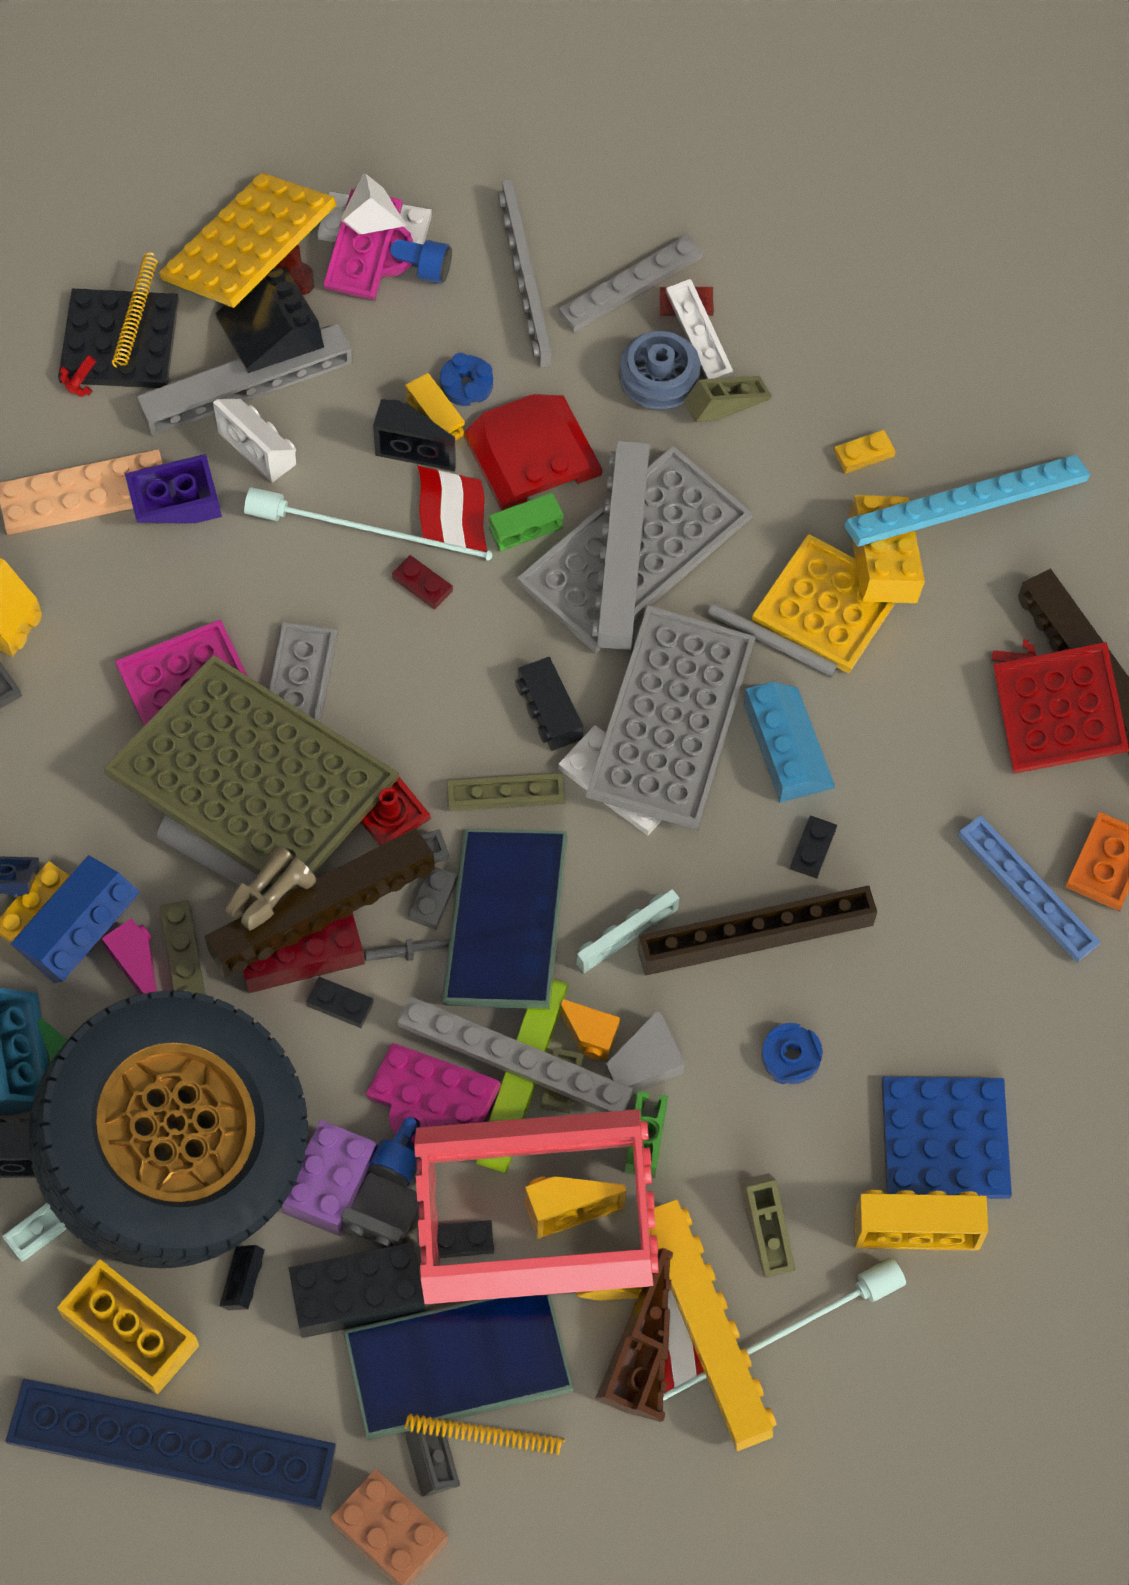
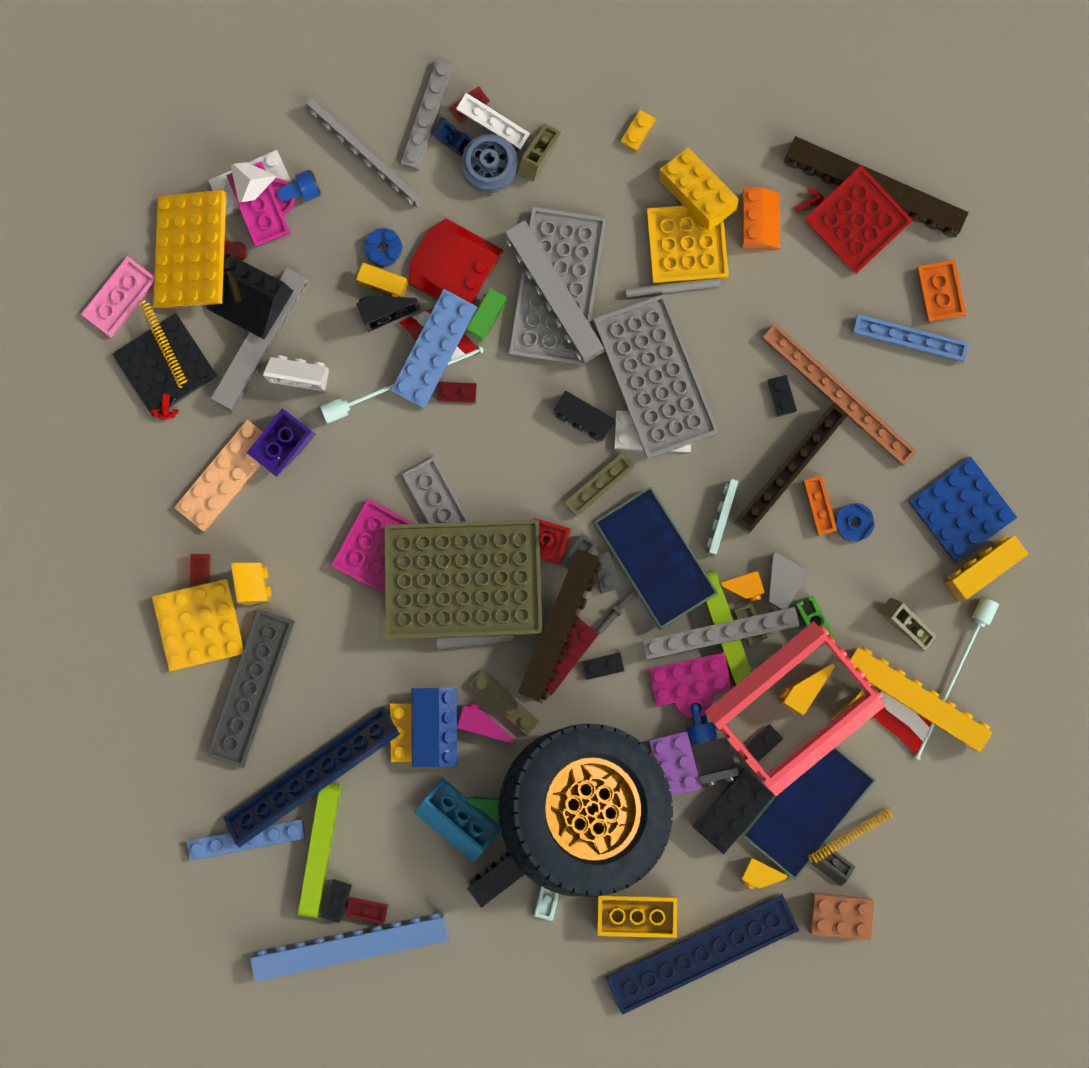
camera: 30 degrees left, 20 degrees up
(126, 240) = (118, 297): none -> bright pink tile
(242, 1277) = (673, 851): black plate -> none
(259, 907) = (523, 657): dark tan piece -> none
(327, 1397) = (760, 874): none -> yellow slope
(432, 513) = (434, 348): none -> medium blue plate
(637, 314) = (450, 136): none -> dark blue slope
(637, 1369) = (899, 745): reddish brown wedge -> none
(761, 1003) = (820, 505): none -> orange plate
(787, 740) = (725, 344): dark azure slope -> none
(887, 895) = (839, 394): none -> nougat plate
(939, 633) = (760, 218): none -> orange slope
(966, 500) = (722, 127): medium azure plate -> none

